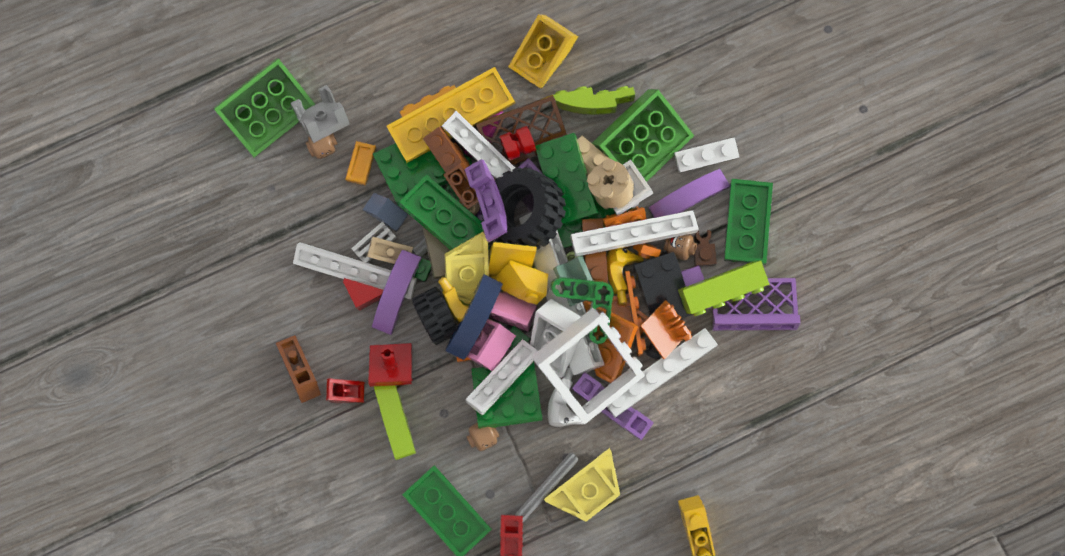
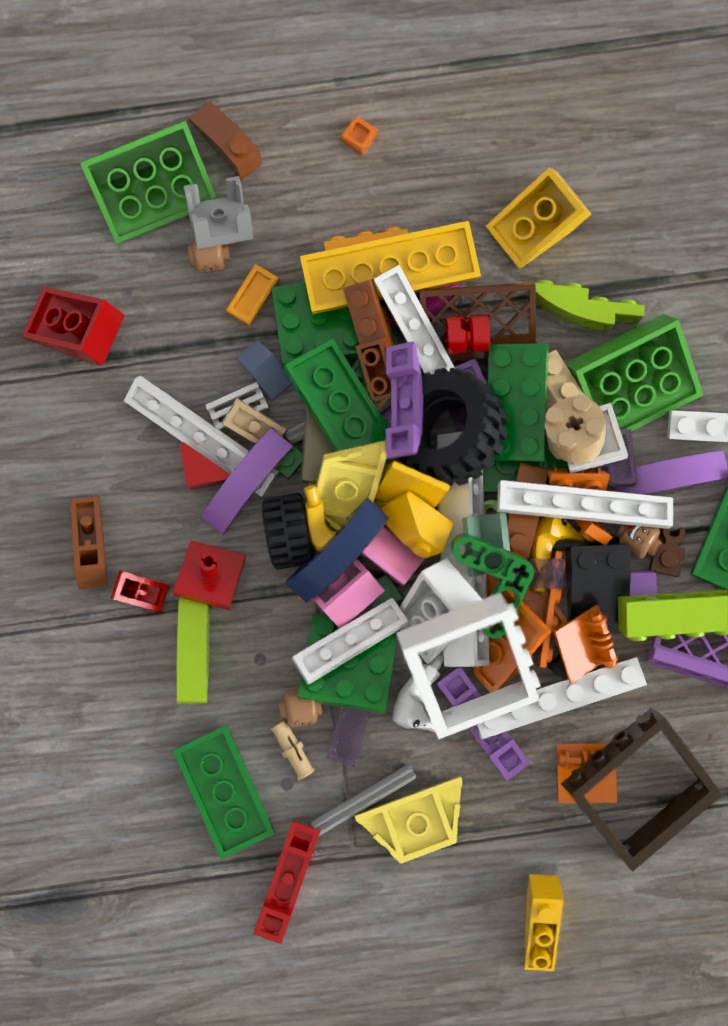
camera: 15 degrees right, 5 degrees up
(241, 221) = (74, 324): none -> red slope
(310, 62) = (227, 140): none -> dark orange slope
(401, 31) = (359, 135): none -> orange tile
(485, 467) = (292, 749): none -> tan pin
(522, 444) = (348, 736): none -> clear purple plate
(622, 289) = (547, 573): none -> plate
(654, 203) = (623, 472): none -> clear purple plate
(696, 418) = (572, 757): none -> orange hinge
(761, 434) = (667, 821): none -> dark brown window

